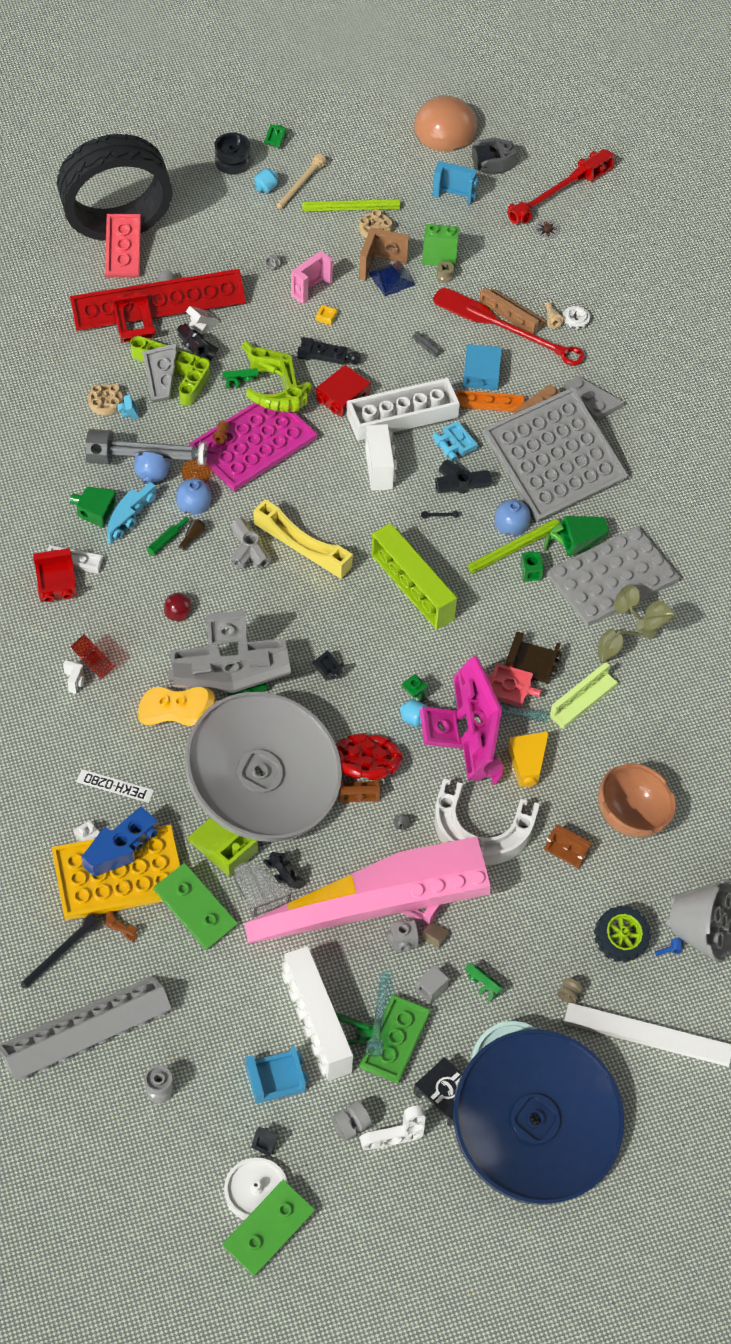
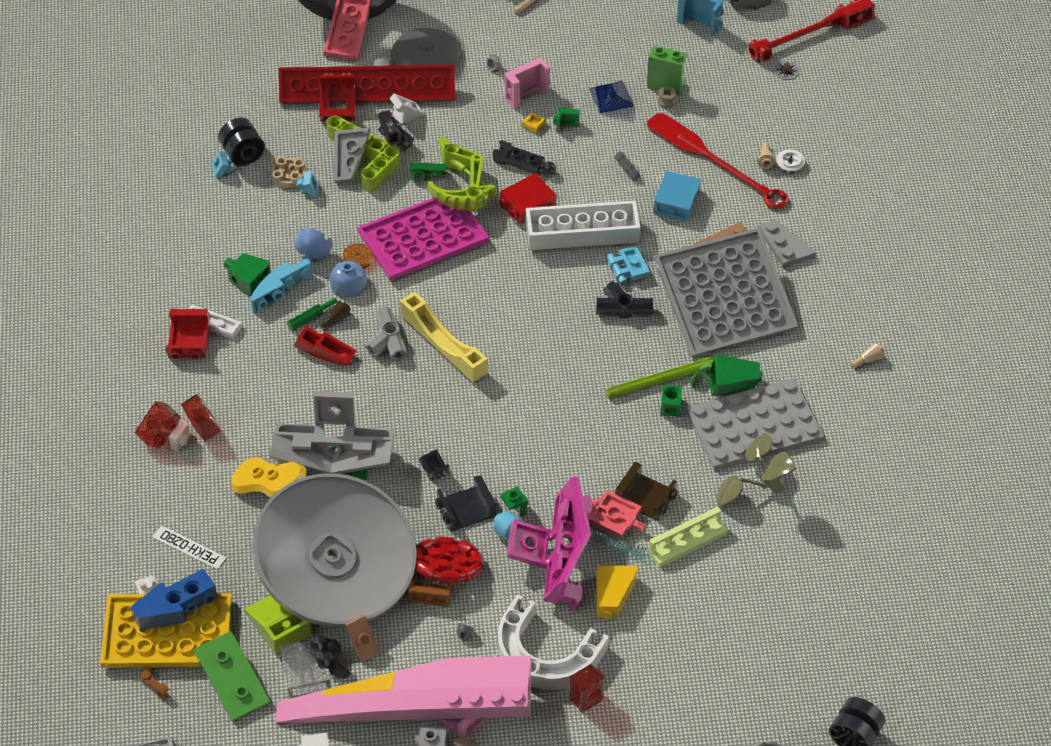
camera: 15 degrees right, 5 degrees down
(38, 401) = (221, 165): none -> medium azure tile
(45, 675) = (157, 424): none -> clear red brick
(53, 375) = (241, 141): none -> black wheel
(89, 924) = (122, 676): black piece -> none
(111, 447) = (269, 216): dark grey piece -> none
(177, 606) = (301, 383): dark red hair -> none
(190, 567) = (324, 347): none -> red slope
(203, 256) = (426, 47): none -> dark grey dish
(220, 435) = (390, 223): dark orange pin -> none
(310, 847) = (362, 638): none -> medium nougat plate
(347, 205) = (590, 19): lime axle -> none
(357, 304) = (566, 117): none -> green bracket
(369, 699) = (467, 505): none -> black panel
(375, 220) = (608, 42): tan tile -> none
(378, 245) = (604, 60): medium nougat bracket -> none
(380, 457) = (544, 268): white piece -> none
(414, 576) = (545, 390): lime brick -> none
(425, 514) = (577, 333): black hinge -> none
(489, 401) = (673, 230): orange tile -> none
(511, 310) = (724, 145): medium nougat fence -> none
(512, 517) = (666, 349): medium blue cylinder -> none
(533, 857) = (586, 688): none -> clear red brick
(567, 846) = (628, 684): dark orange hinge -> none
(636, 800) = (707, 649): nougat piece -> none
(702, 491) = (872, 353): none -> tan cone

